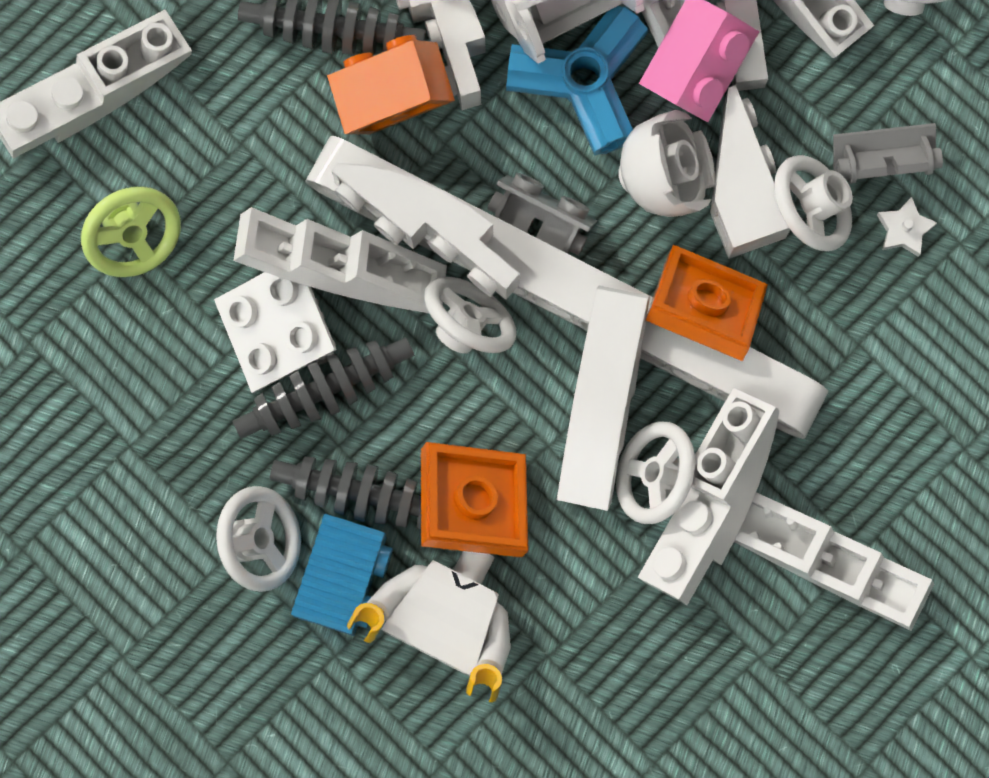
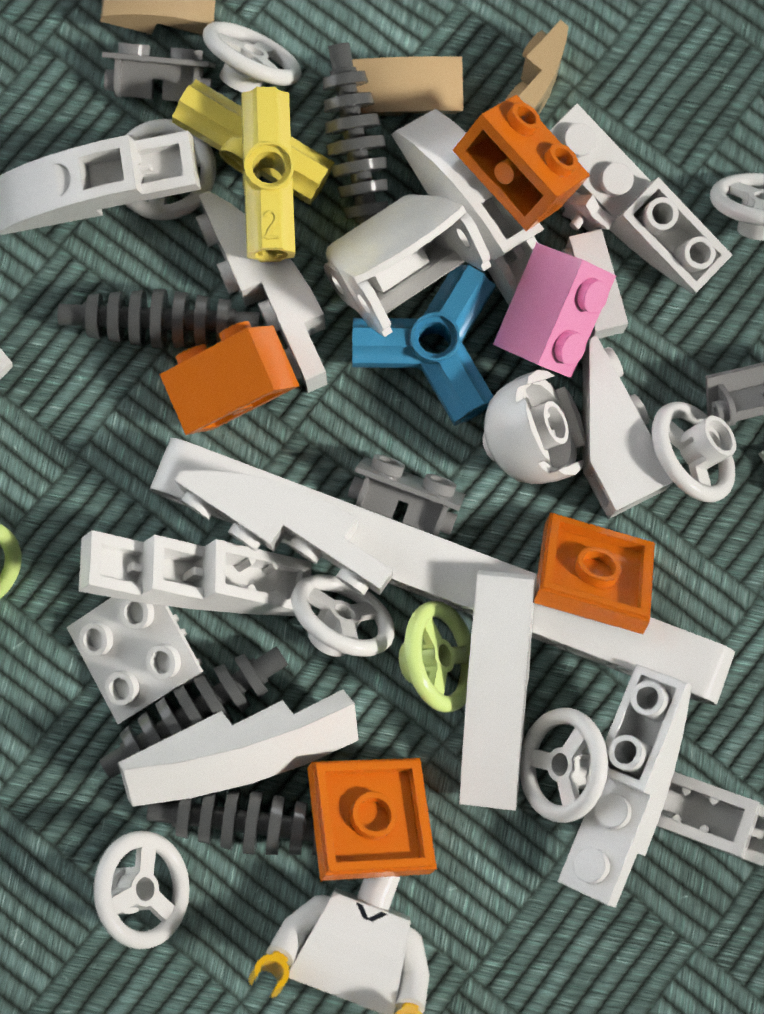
camera: 10 degrees left, 0 degrees up
(340, 573) = (235, 916): dark azure brick -> none
(350, 428) = (227, 756): none -> white slope
(545, 363) = (428, 657): none -> yellowish green piece

